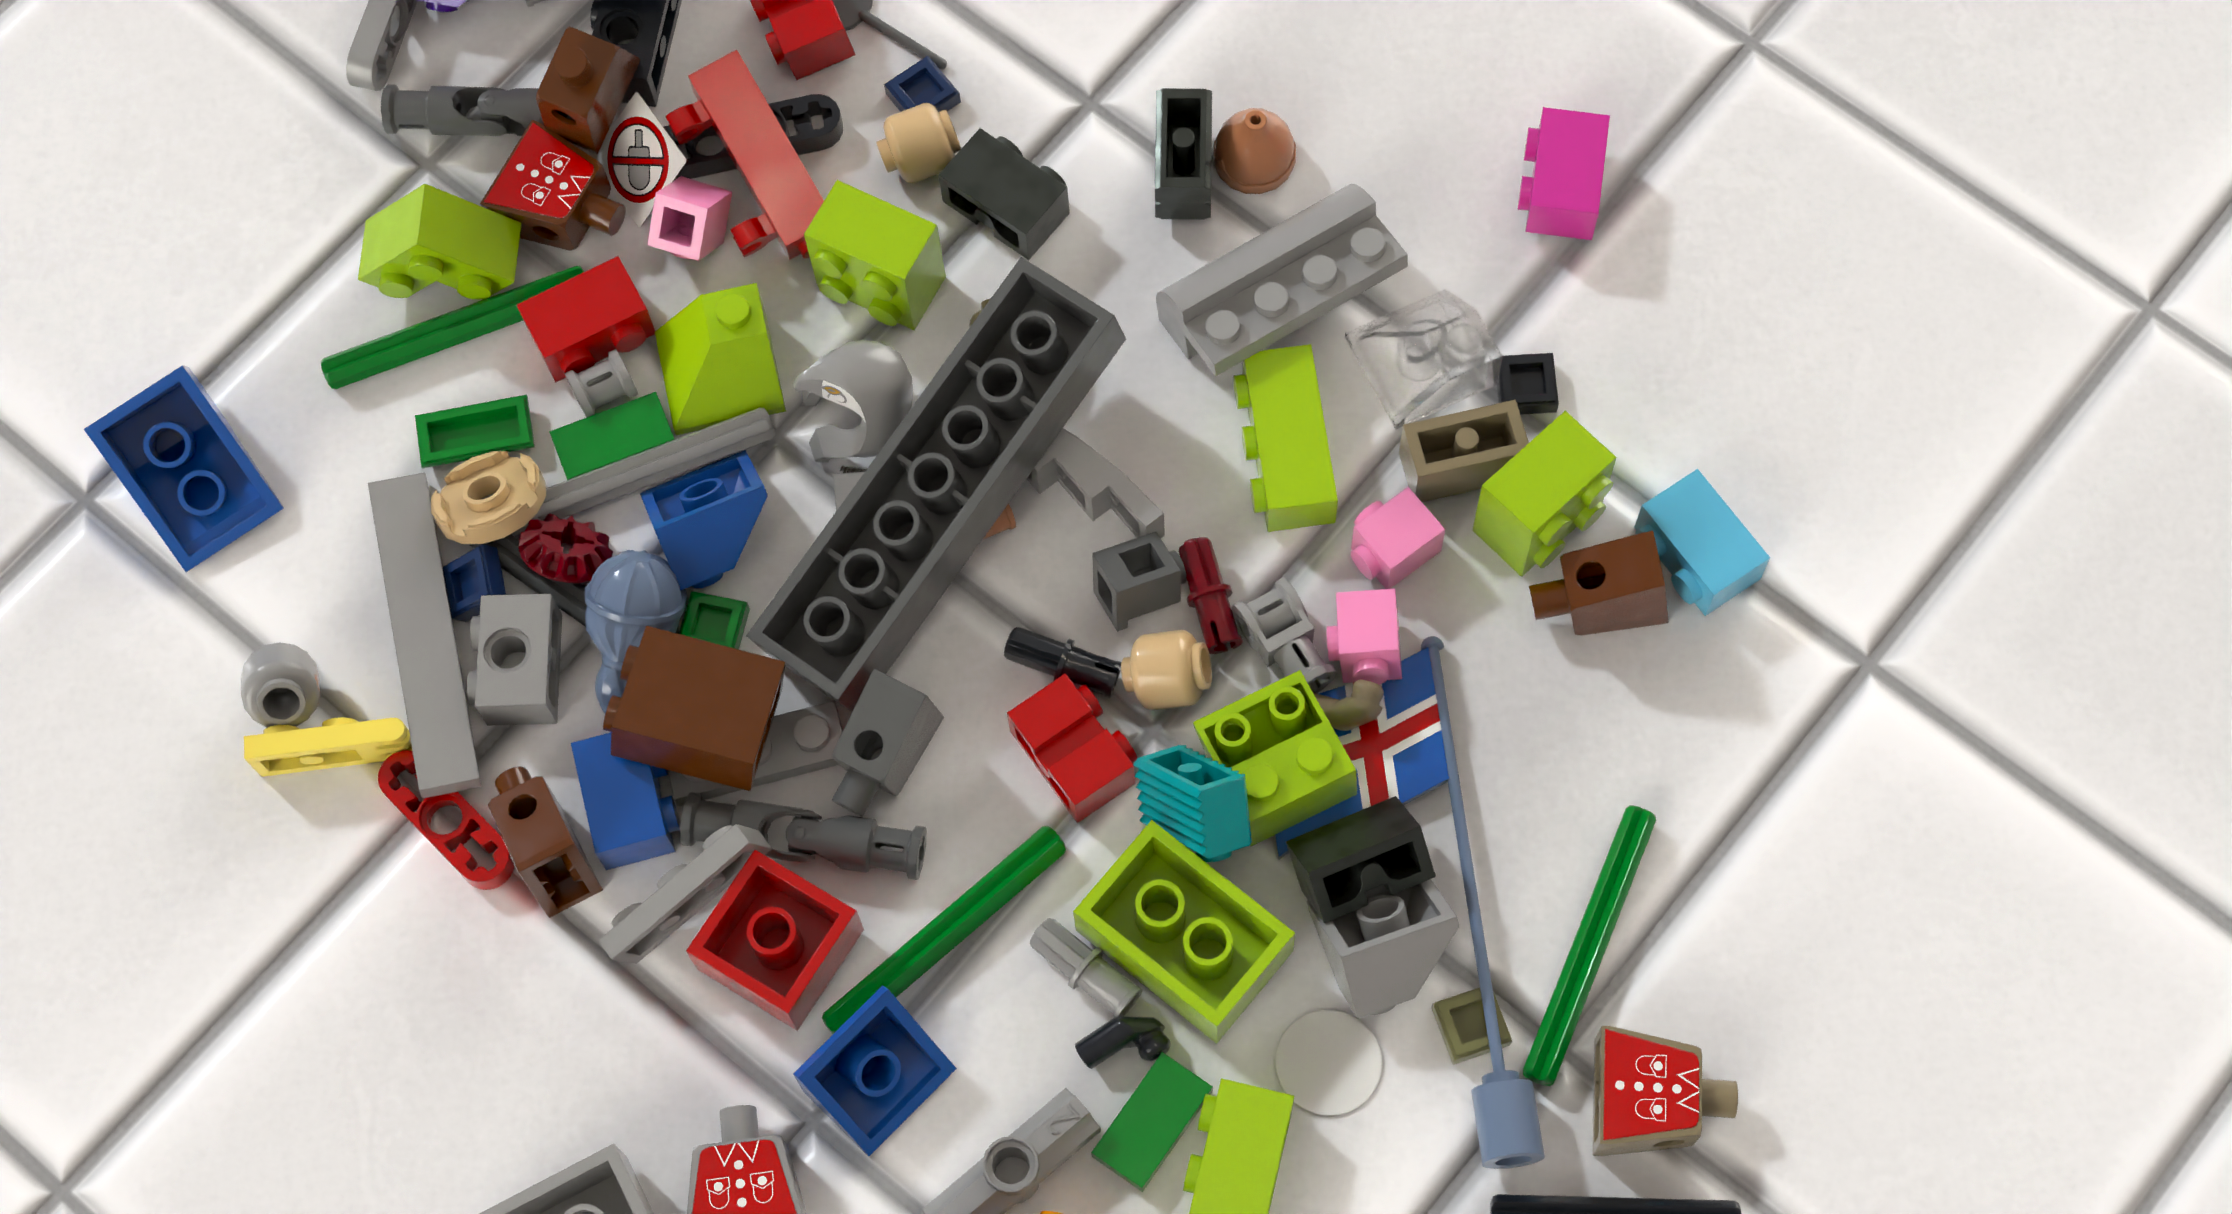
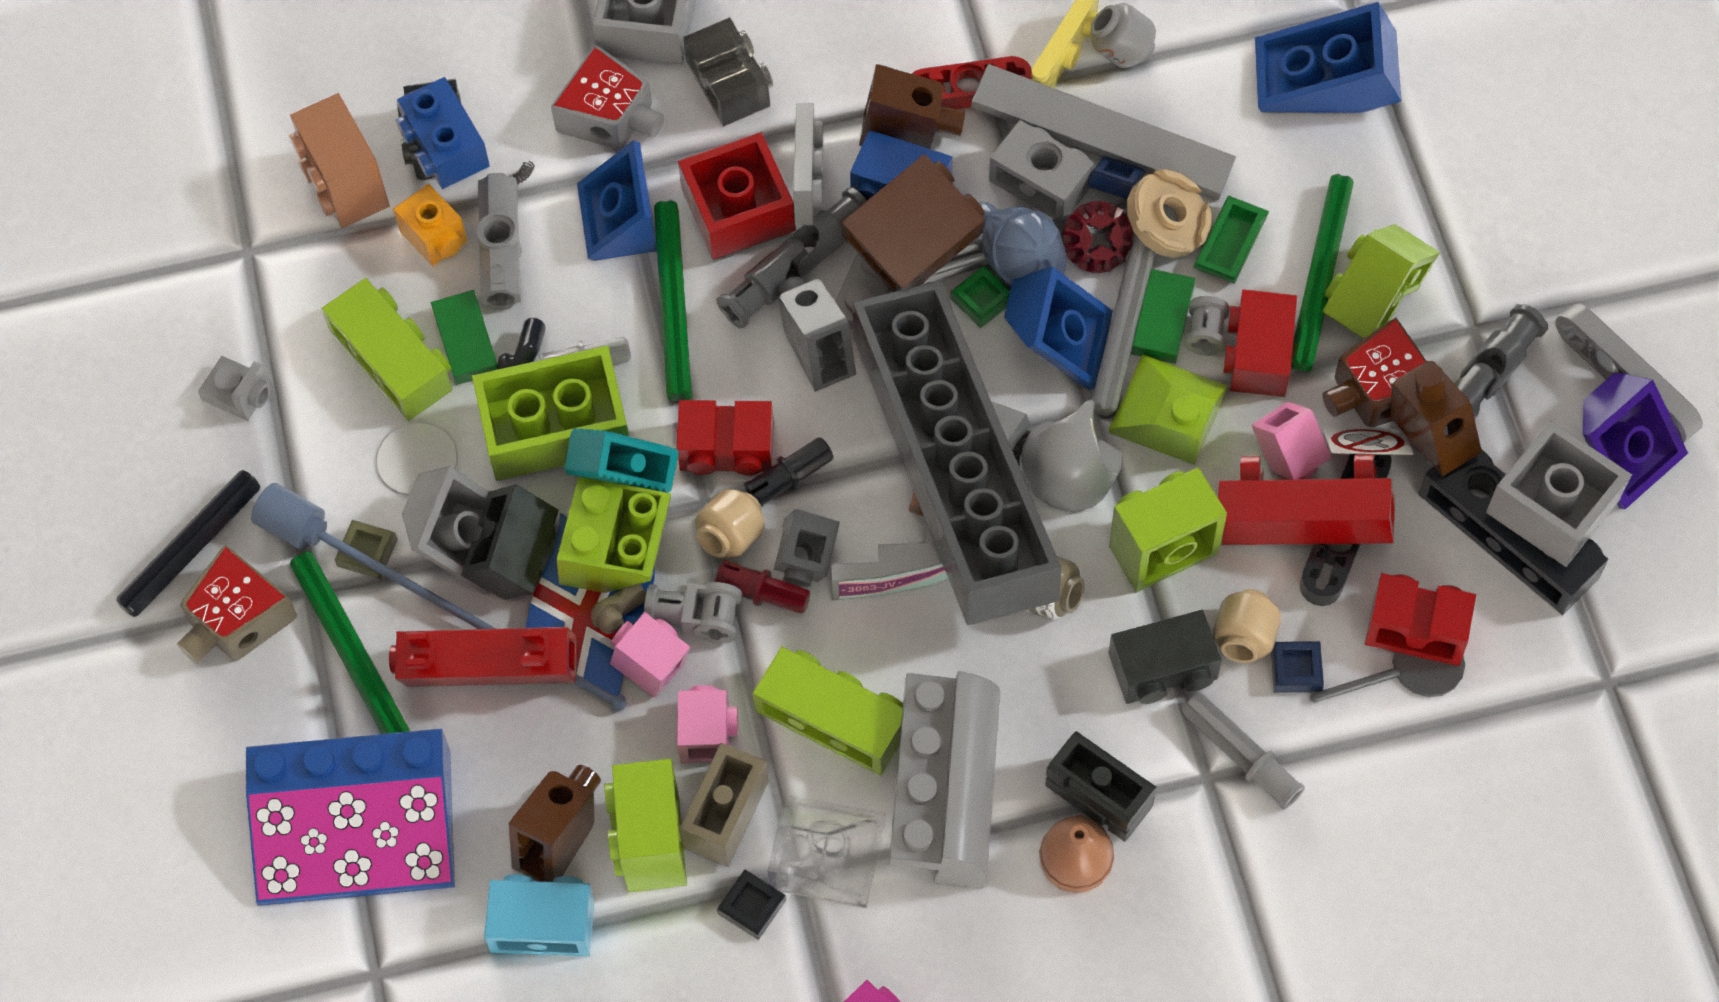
camera: 125 degrees right, 5 degrees down
(610, 1085) = (726, 71): none -> clear smoke brick
(1049, 62) = (1242, 750): none -> light grey axle
(1501, 785) = (484, 657): none -> red brick
(1752, 797) = (350, 816): none -> slope

